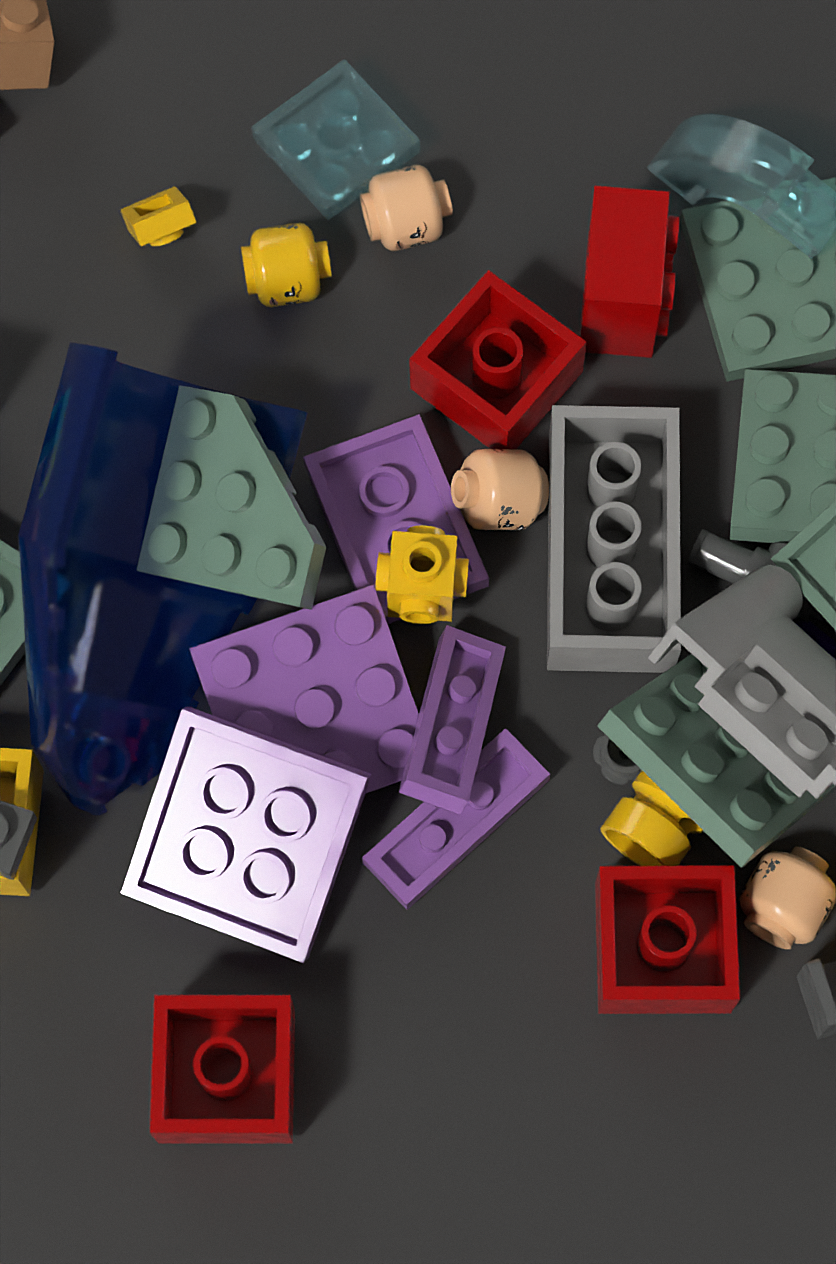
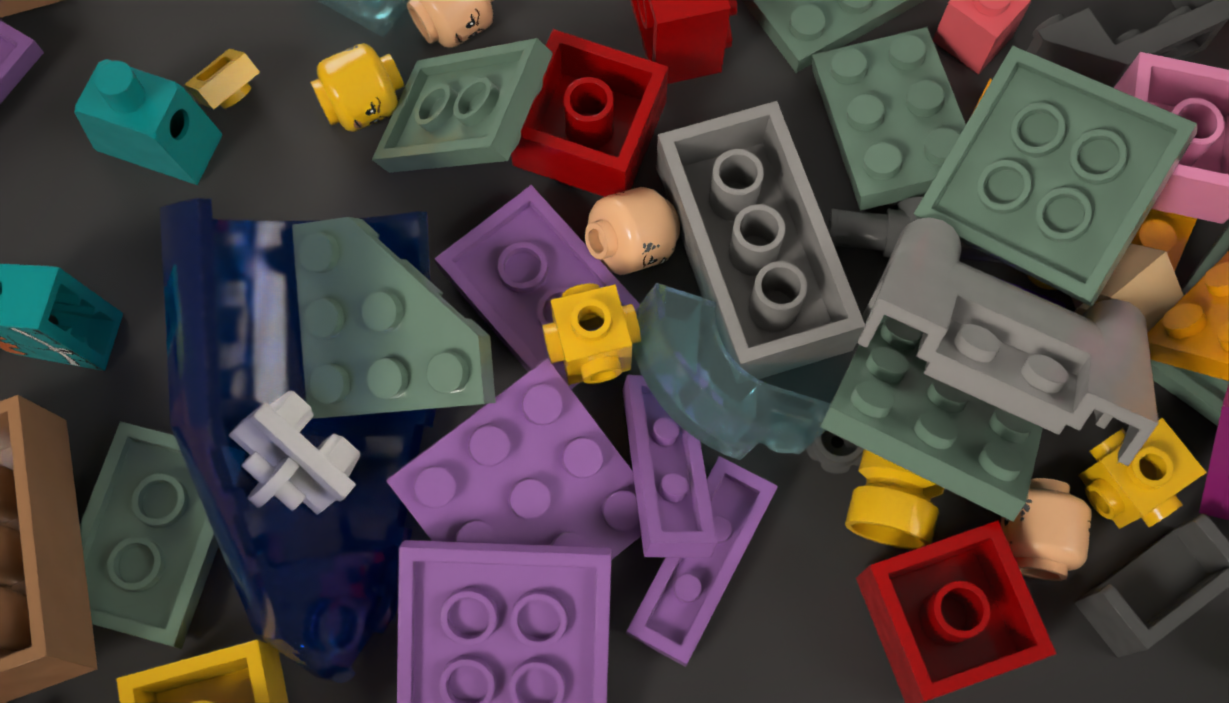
camera: 20 degrees left, 0 degrees up
(65, 233) = (132, 119): none -> teal torso
(108, 605) = (288, 462): none -> white hips
(376, 320) = (464, 107): none -> sand green plate
(512, 661) = (708, 389): none -> clear light blue arch

